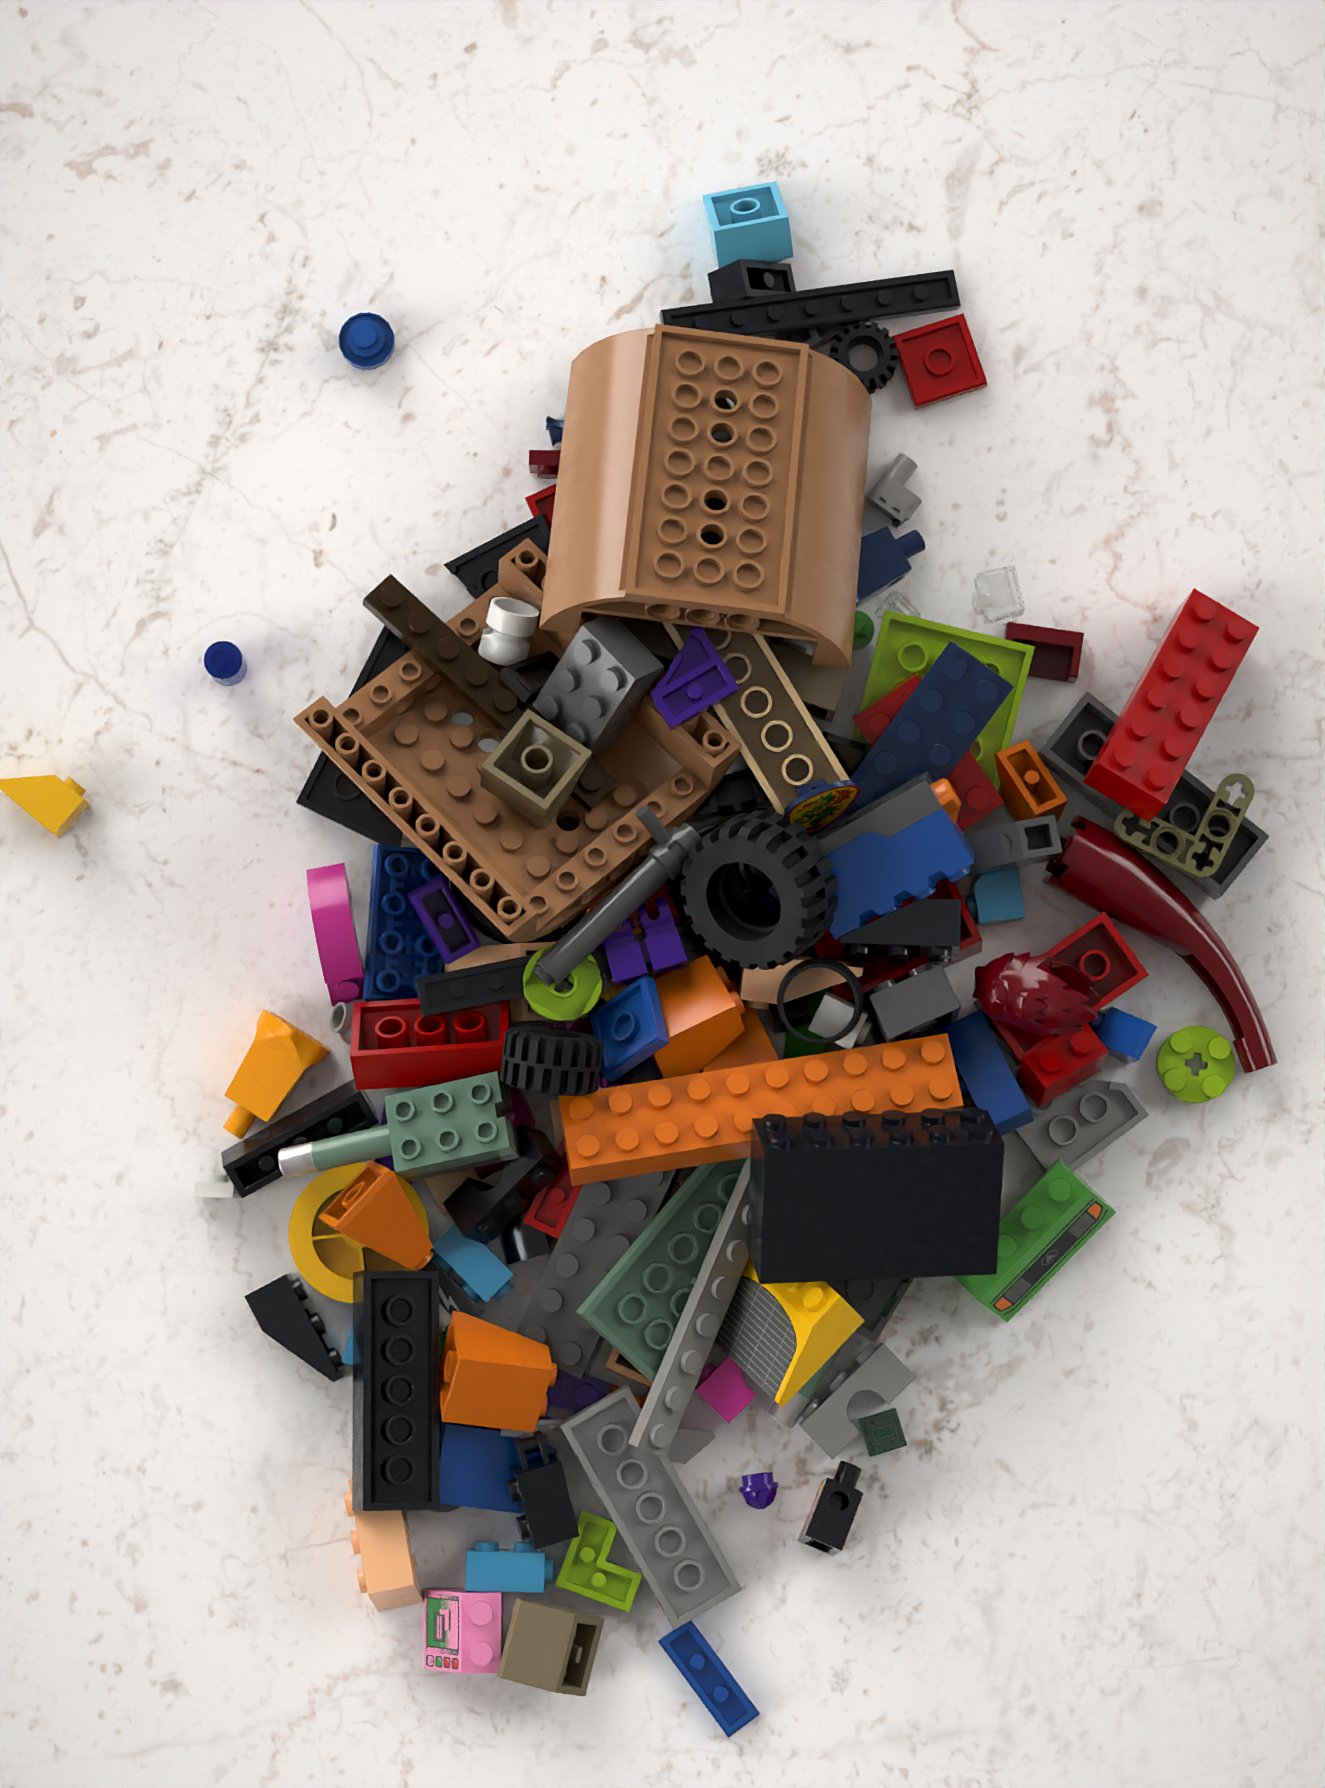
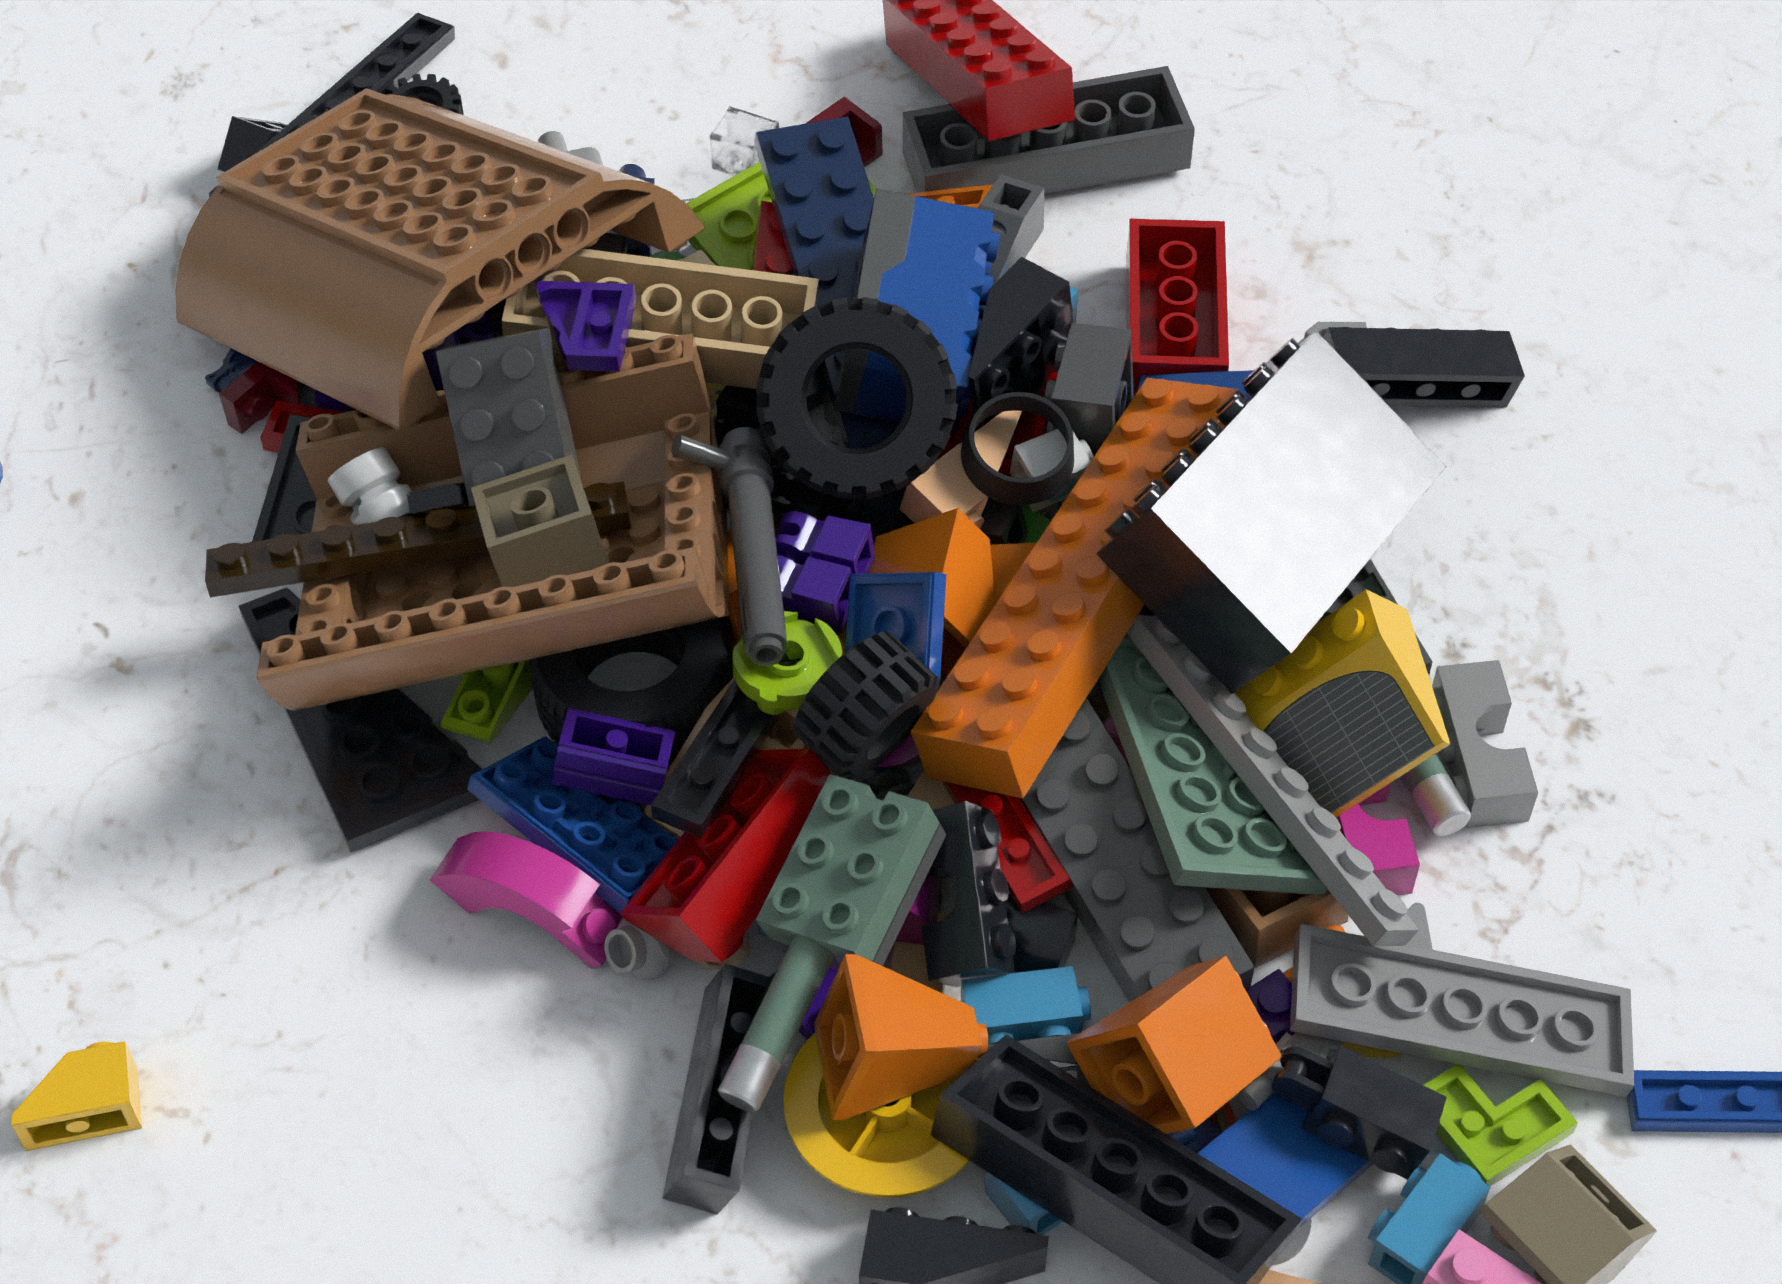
camera: 50 degrees left, 30 degrees down
(215, 1187) = (701, 1230): white plate -> none
(225, 663) = (133, 807): clear blue brick -> none
(271, 1071) = (616, 1068): light orange piece -> none
(748, 224) = (201, 123): medium azure slope -> none
(759, 1489) = (1518, 900): dark purple plate -> none
(821, 803) = (815, 284): shield -> none
(825, 1526) = (1603, 839): black torso -> none
(882, 1432) = (1543, 746): clear green tile -> none
(939, 361) = (490, 70): red tile -> none
(1035, 994) = (1170, 288): dark red head -> none
(1039, 1238) = (1444, 529): bright green slope -> none
(1061, 1065) = (1253, 328): red brick -> none
(1123, 1034) = (1268, 288): blue slope -> none
(1125, 1177) = (1432, 364): none -> black brick
(1136, 893) = (1092, 203): dark red brick -> none
(1178, 1078) = (1346, 249): lime plate -> none
(1186, 843) = (1076, 142): olive beam -> none

